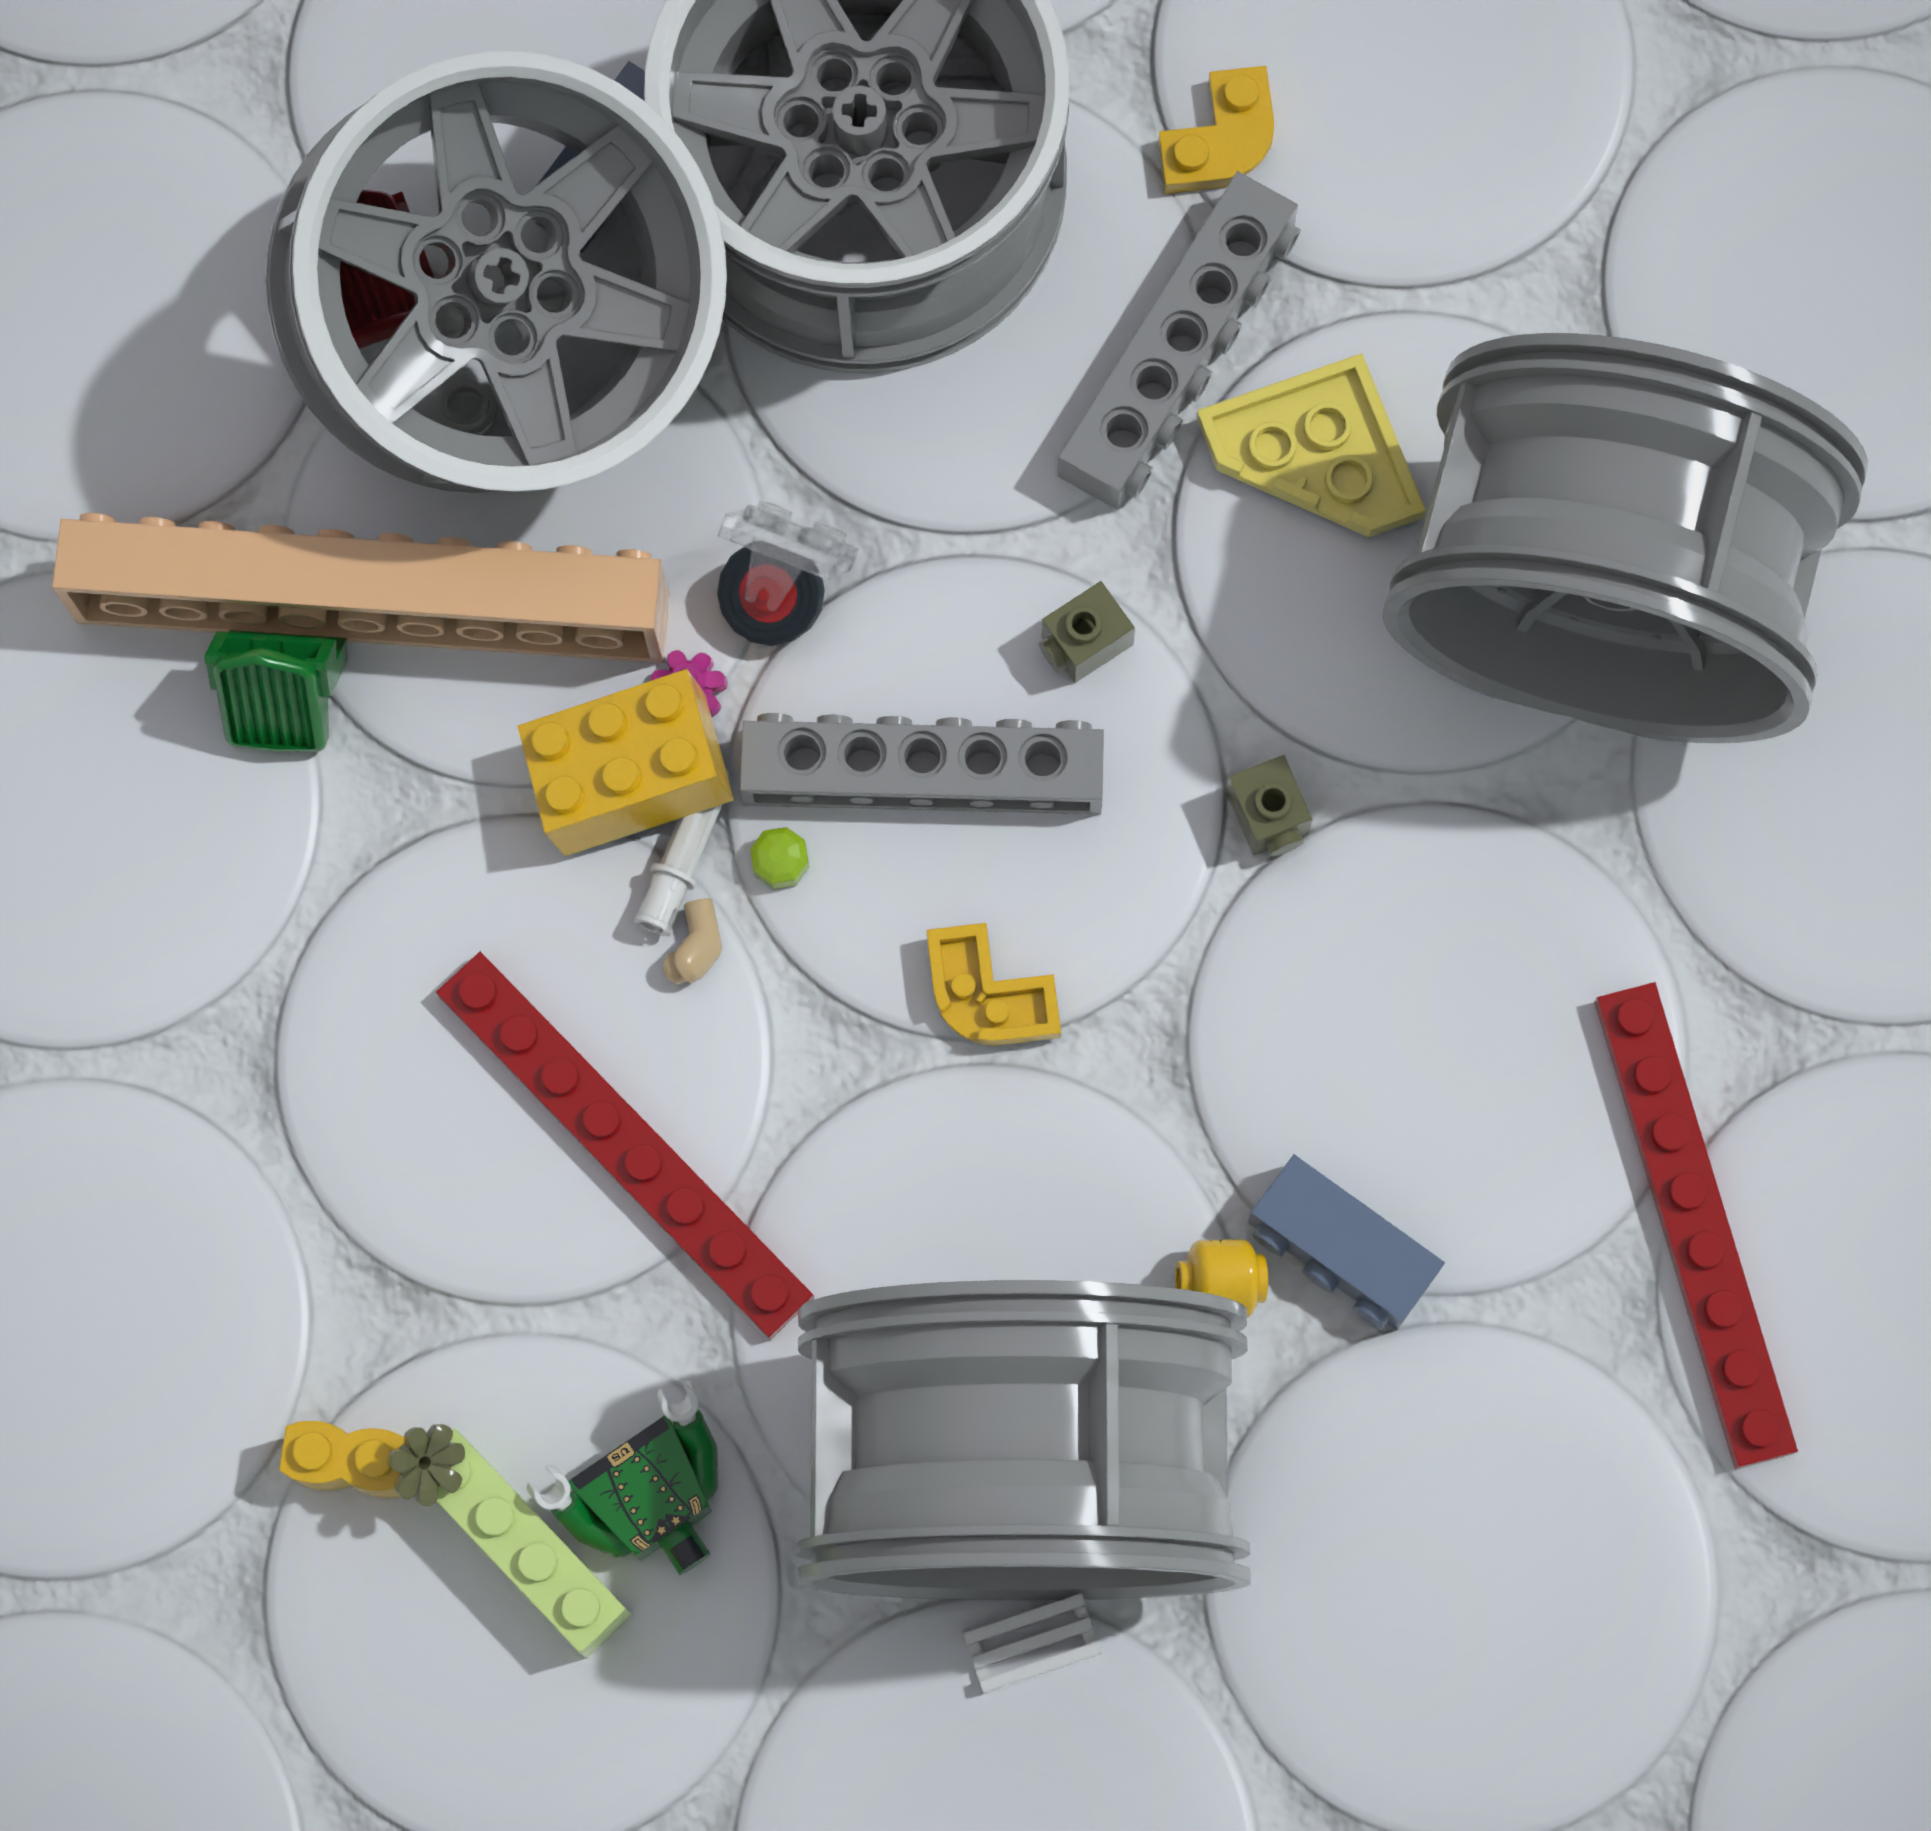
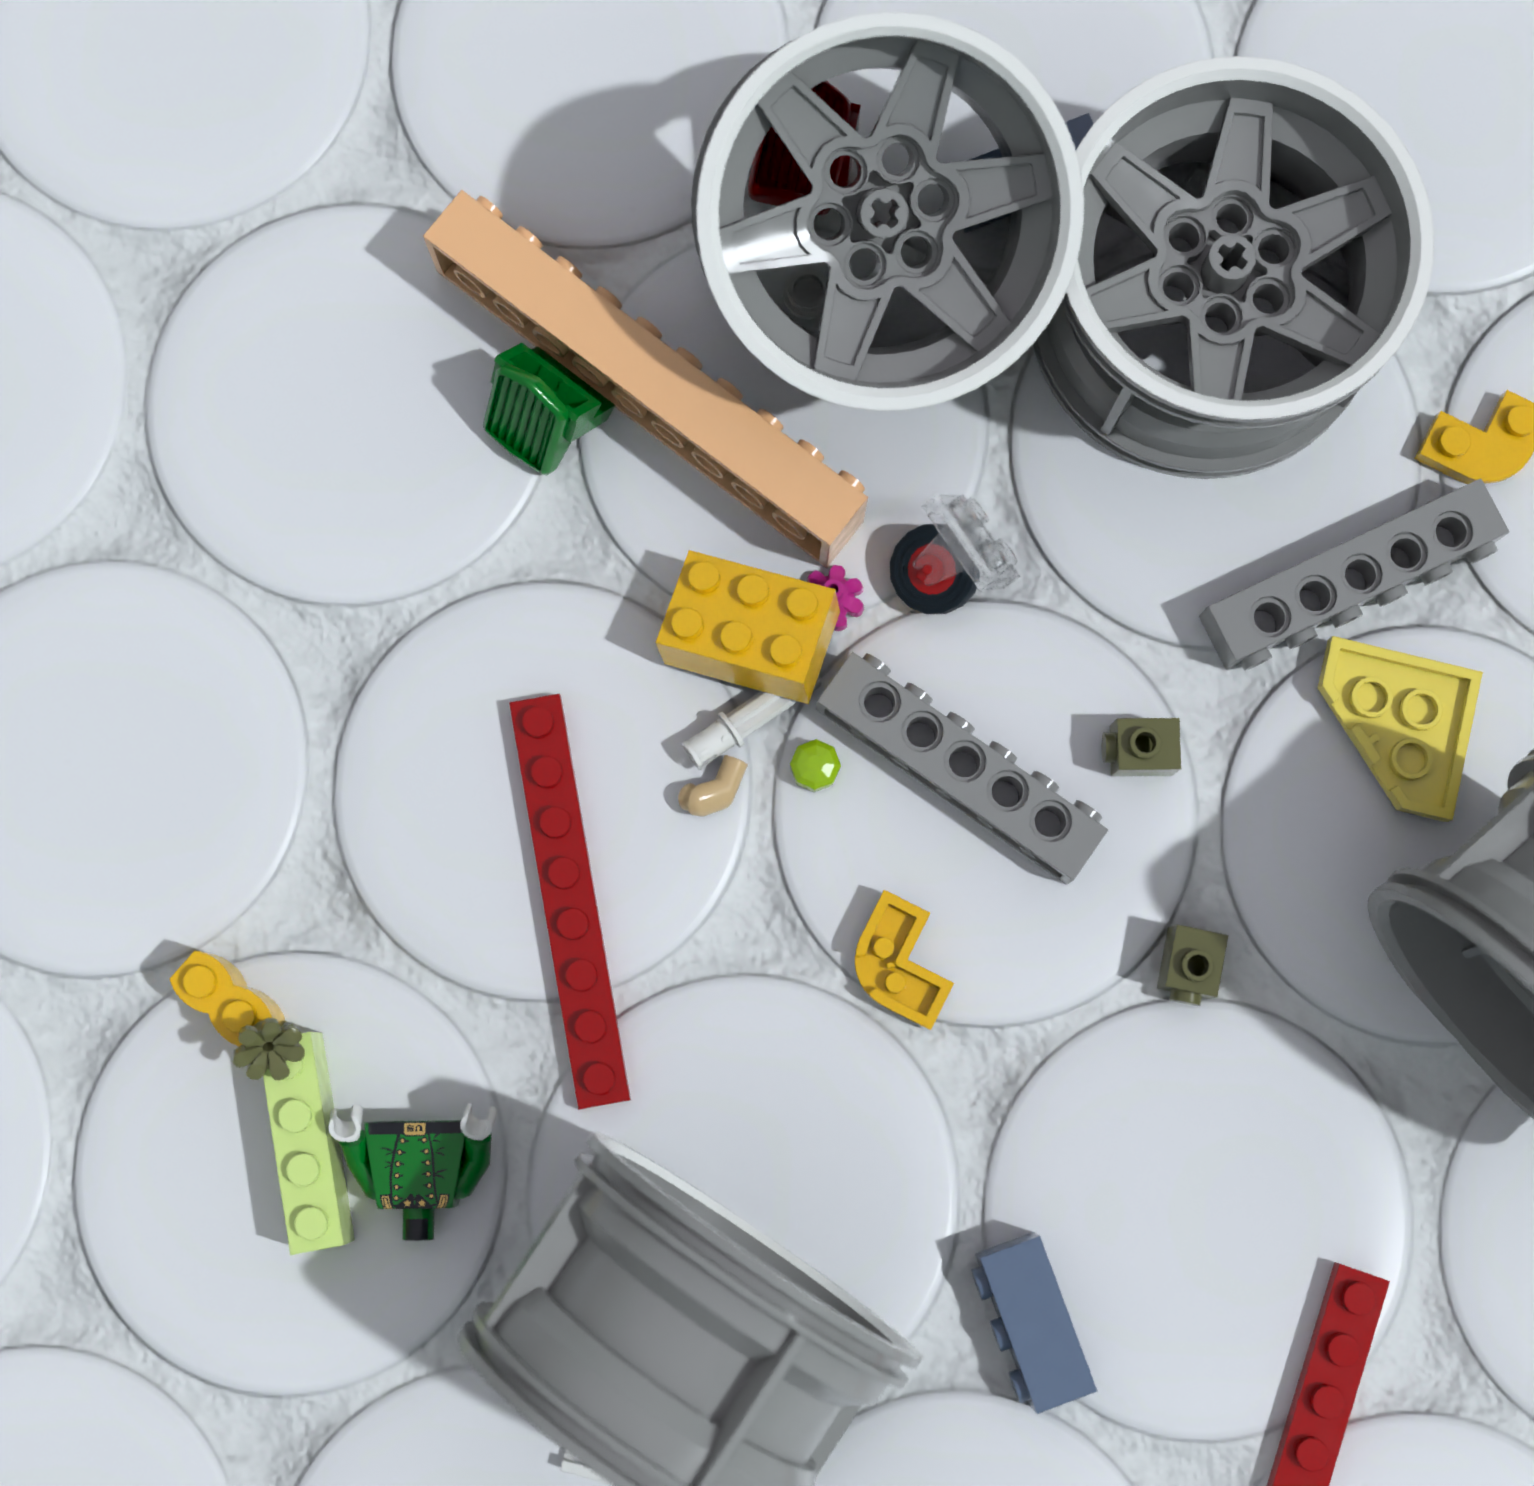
camera: 30 degrees right, 5 degrees up
(1226, 1270) = (928, 1288): yellow head -> none

